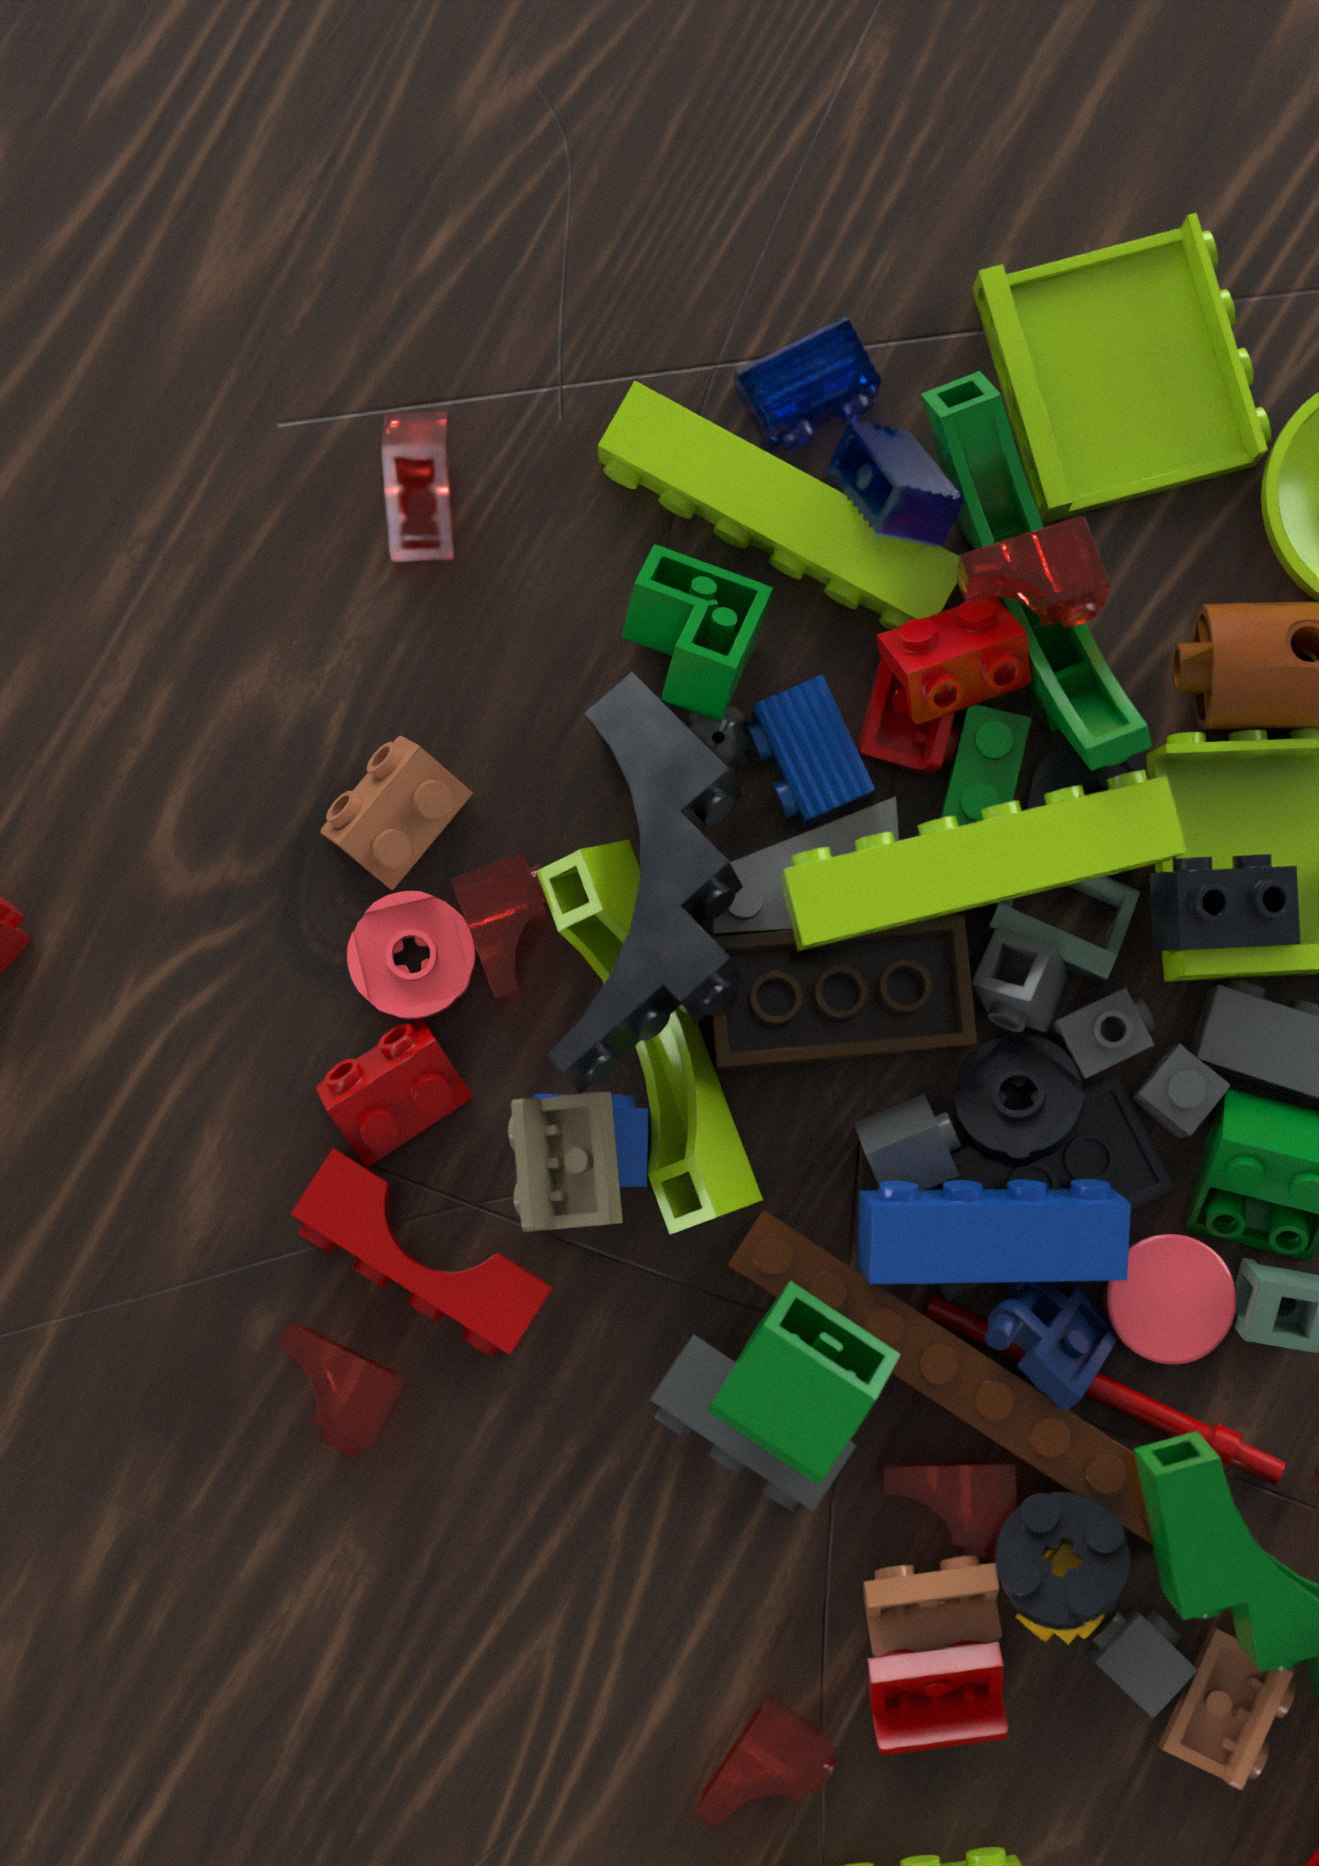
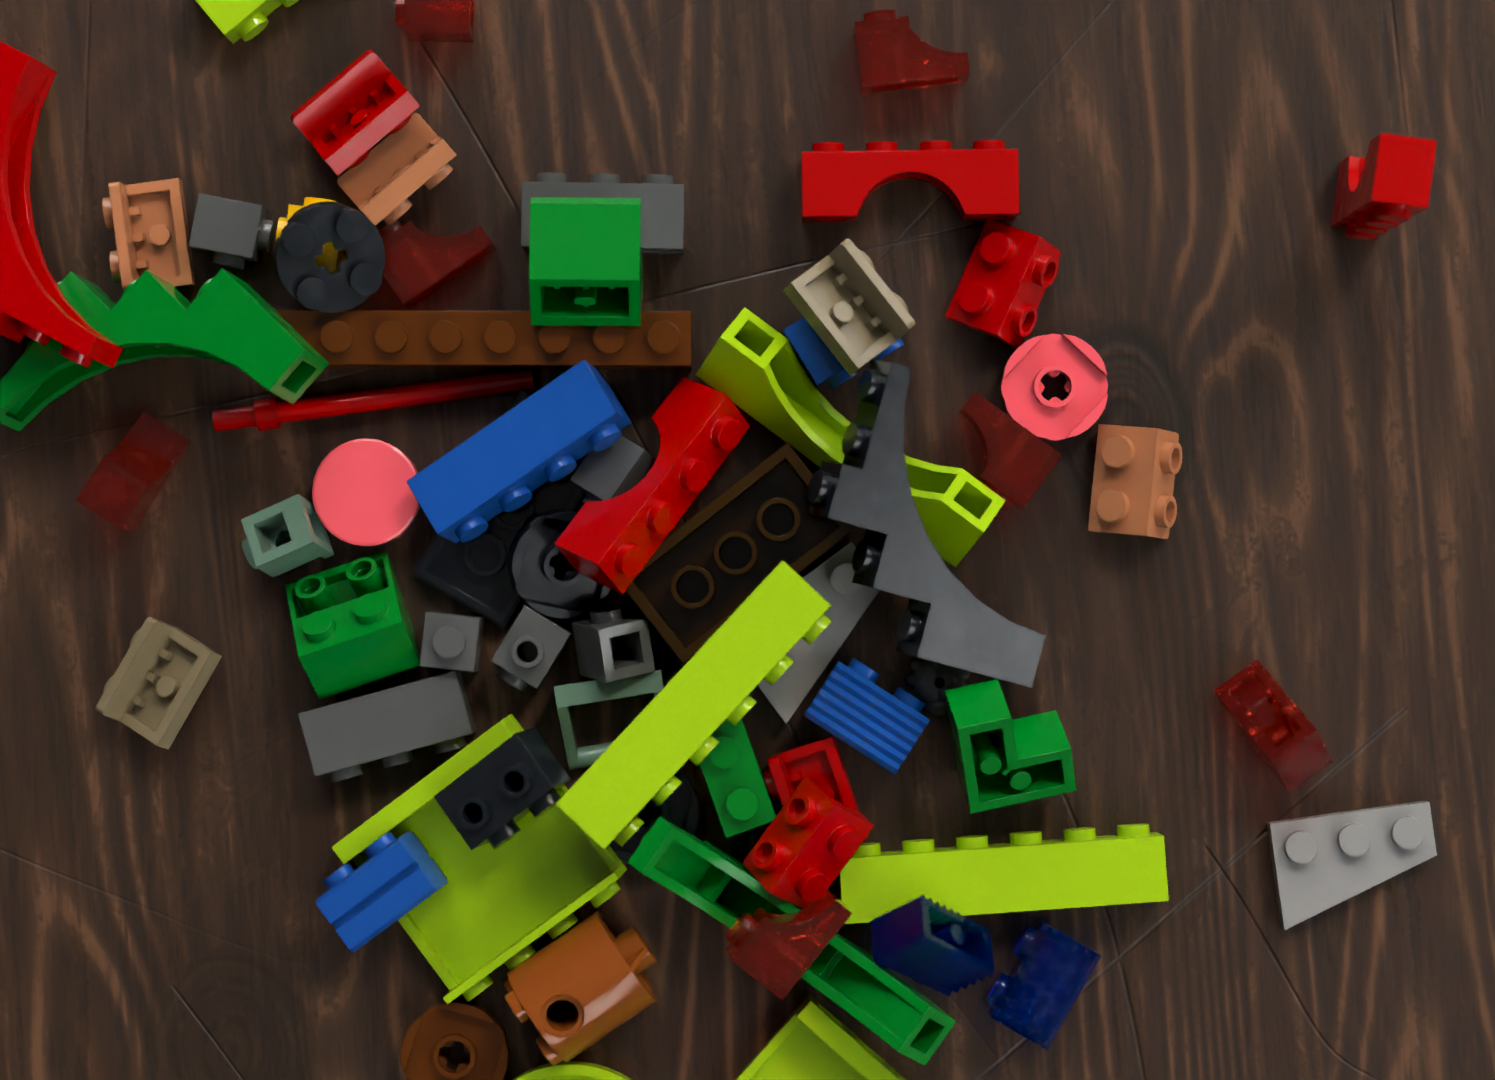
camera: 155 degrees right, 5 degrees up
(432, 322) = (1344, 854): none -> light grey wing
(943, 1082) = (619, 535): none -> red arch
(1065, 1349) = (418, 405): dark blue plate -> none

